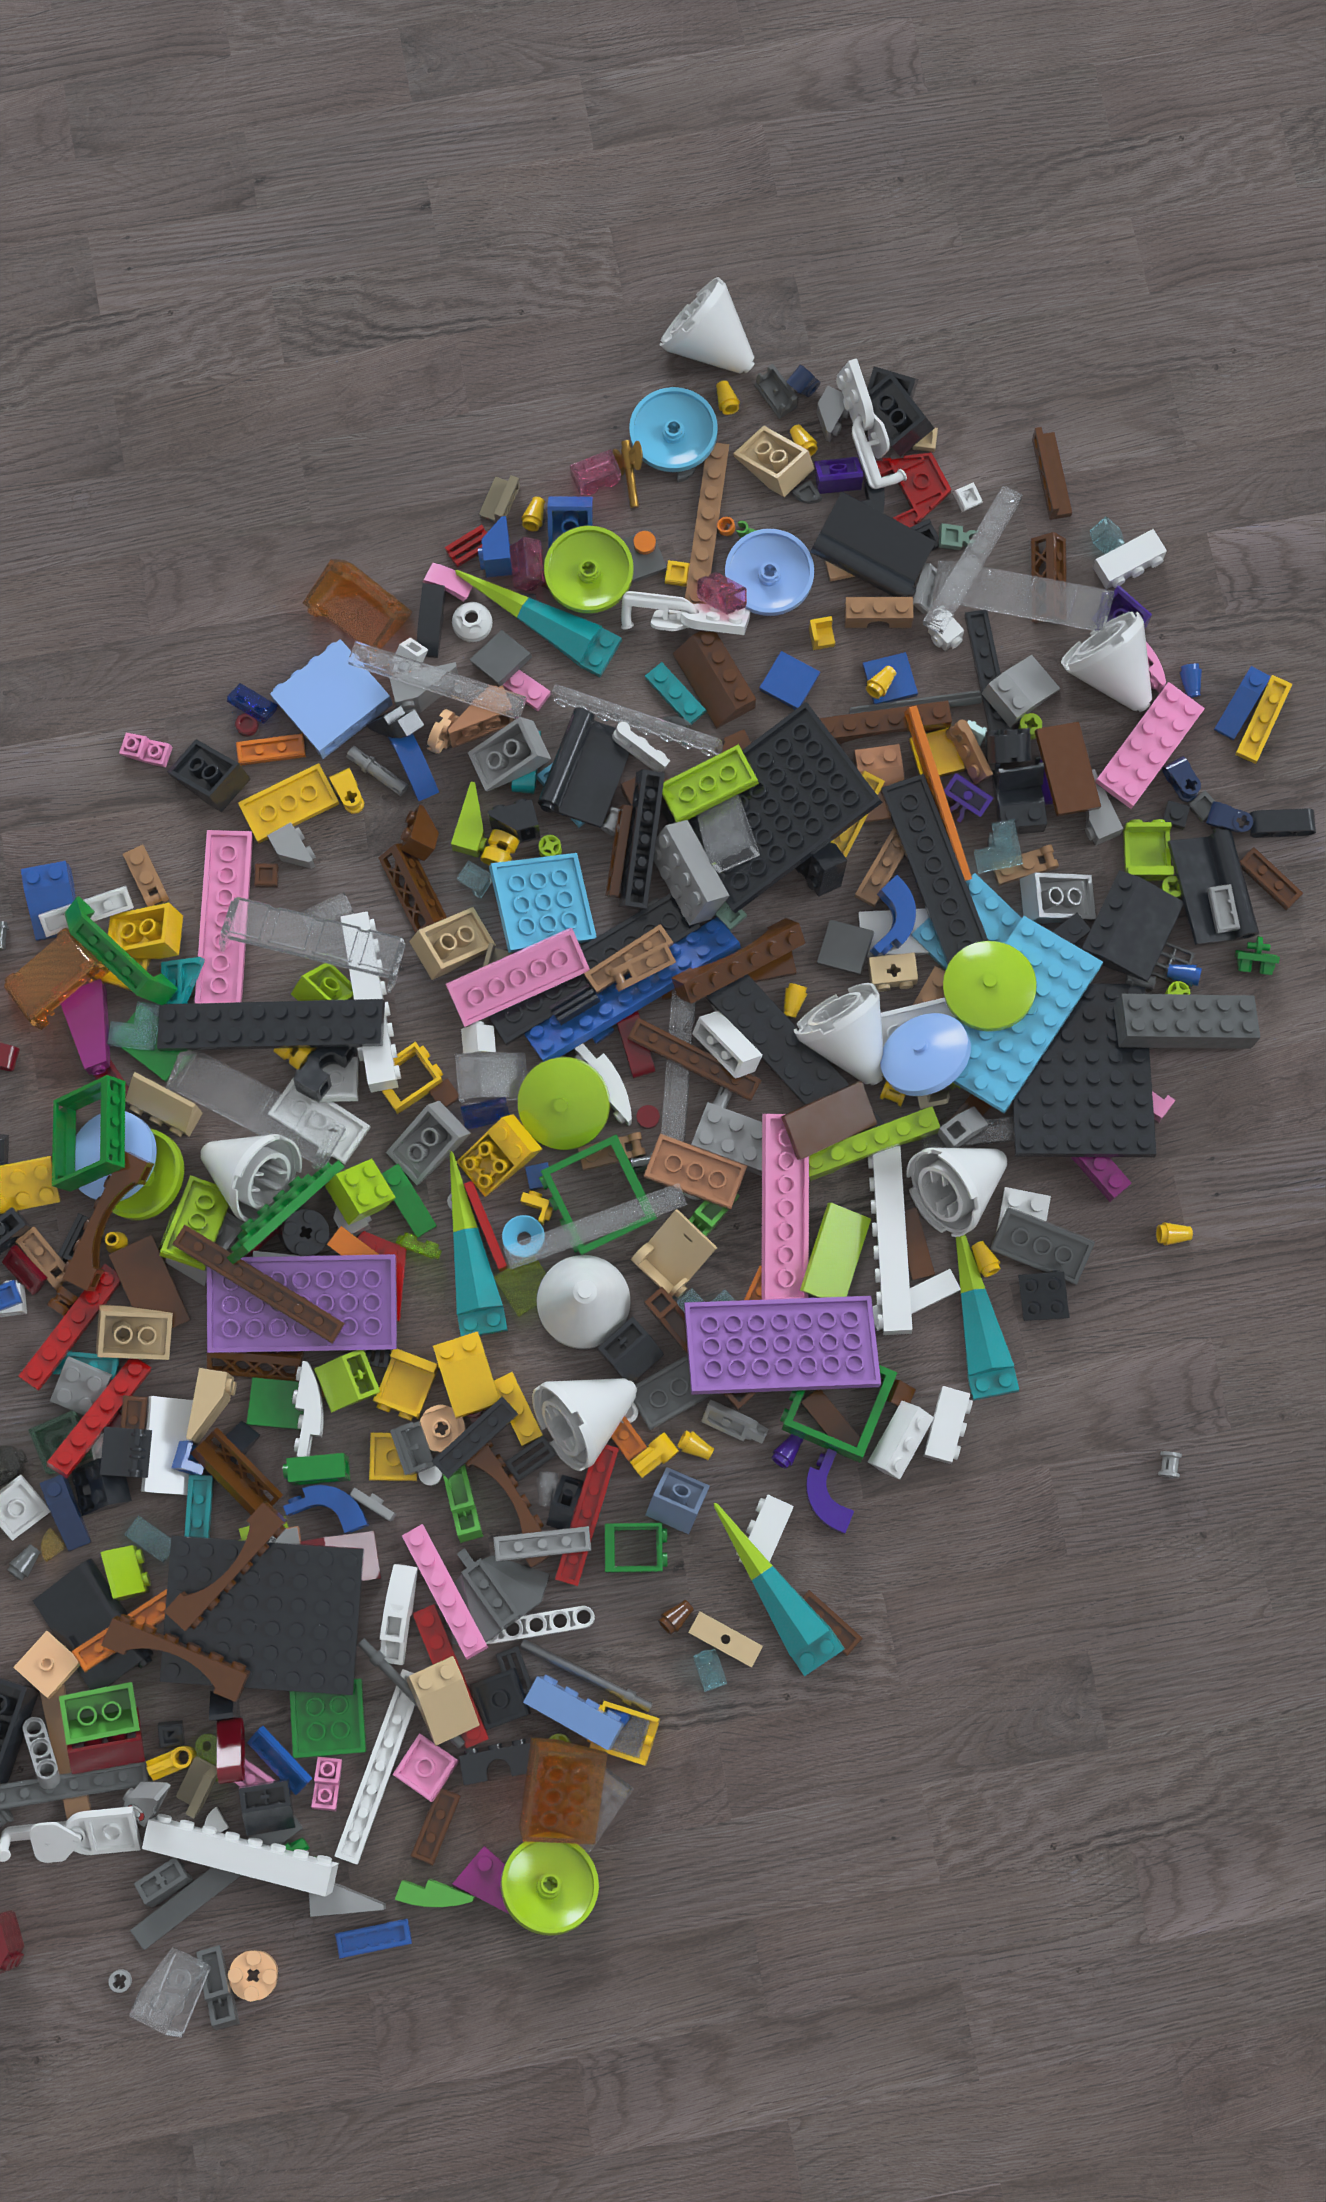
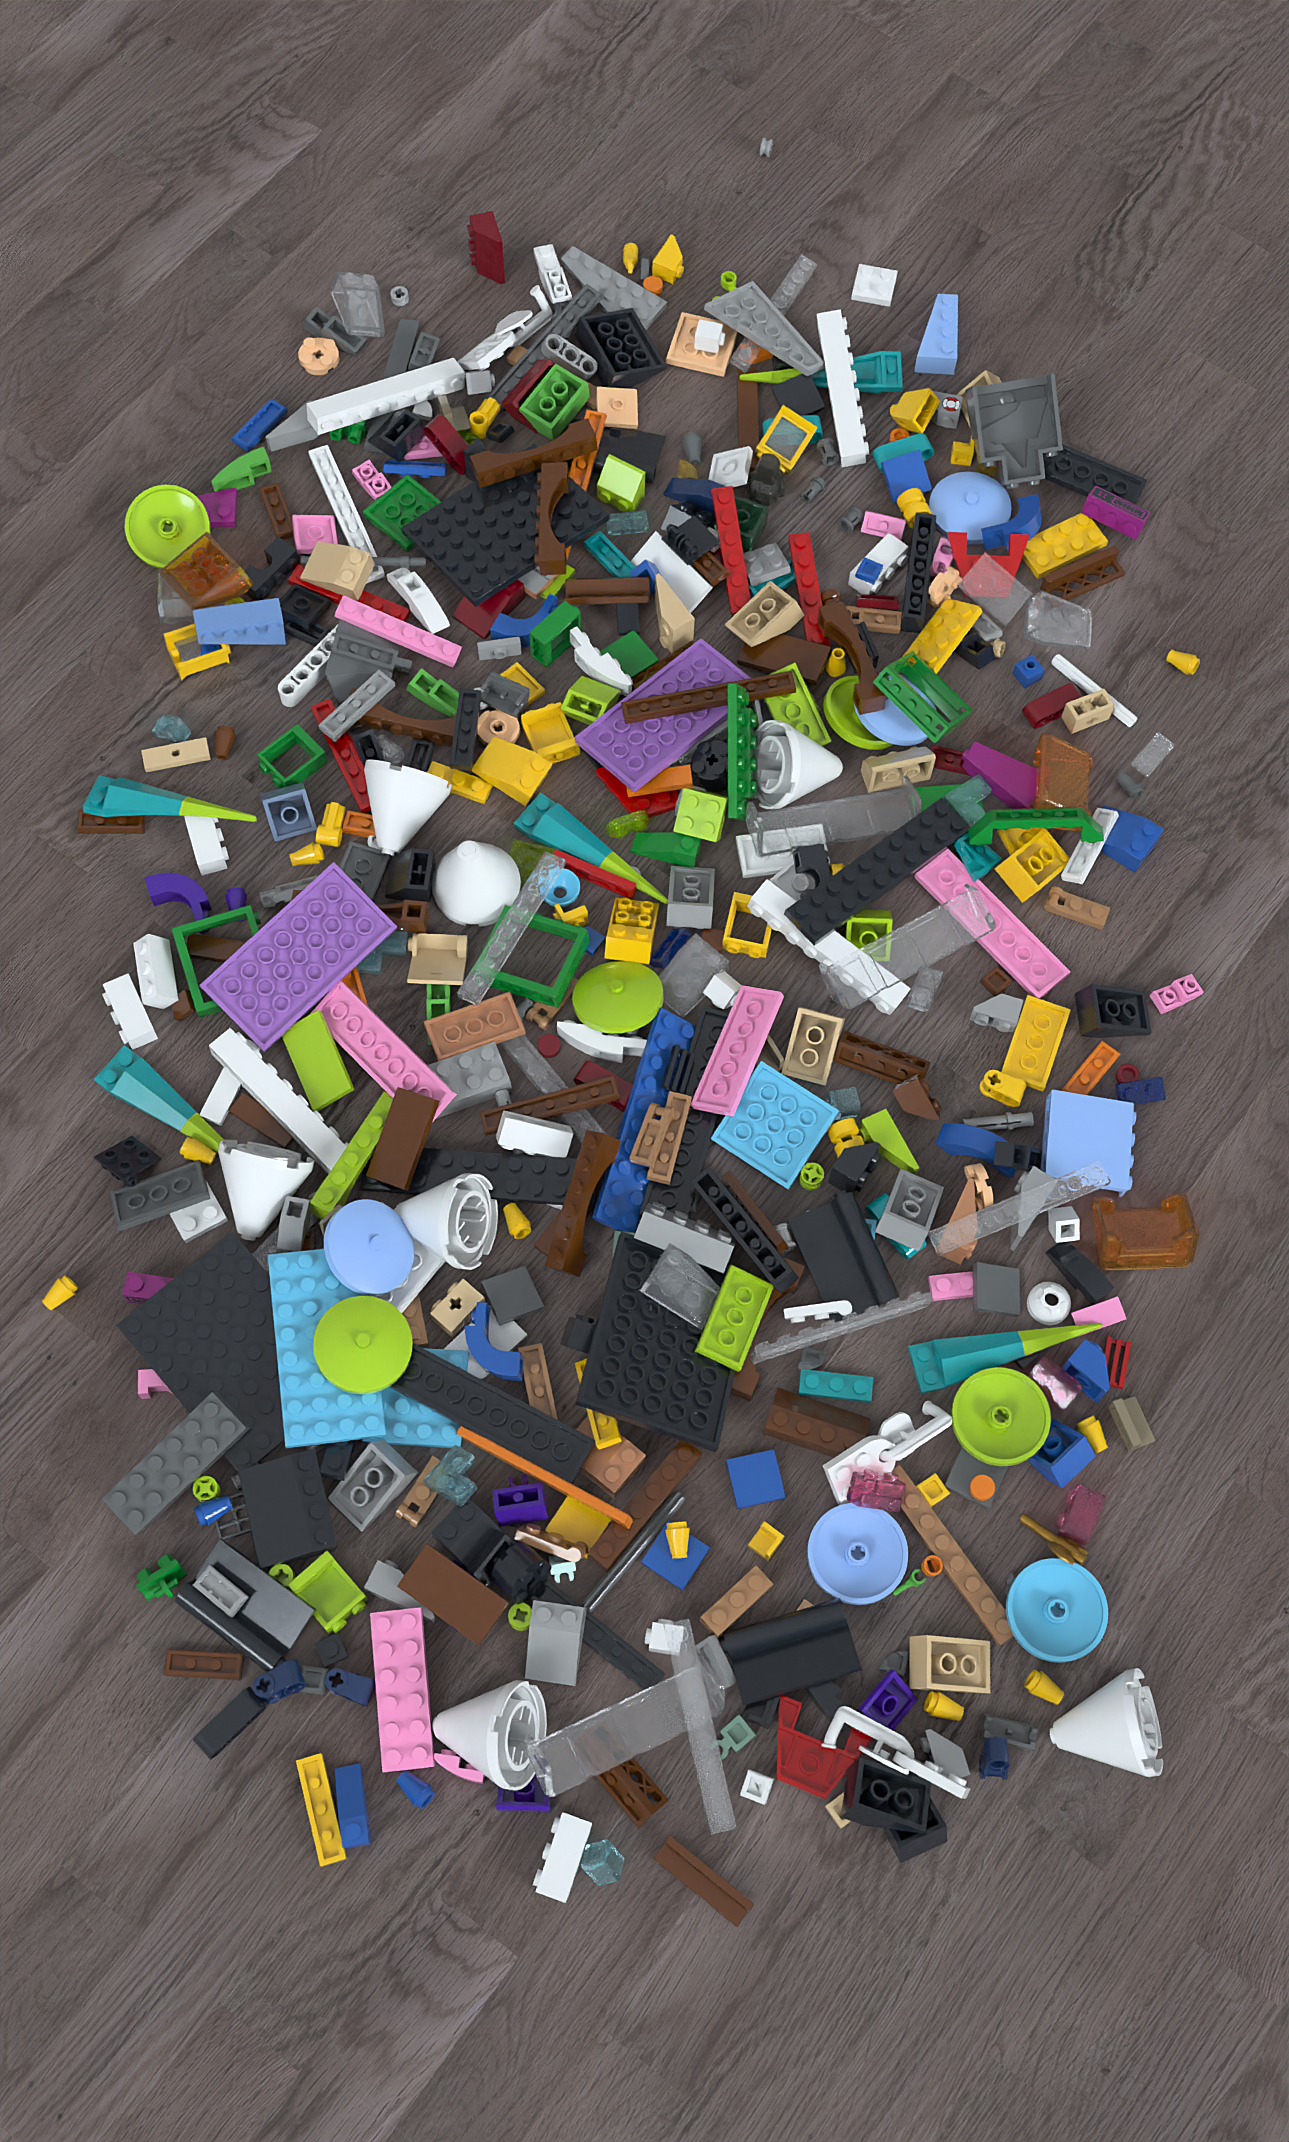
camera: 135 degrees right, 10 degrees down
(627, 1696) = (215, 673): flat silver bar -> none

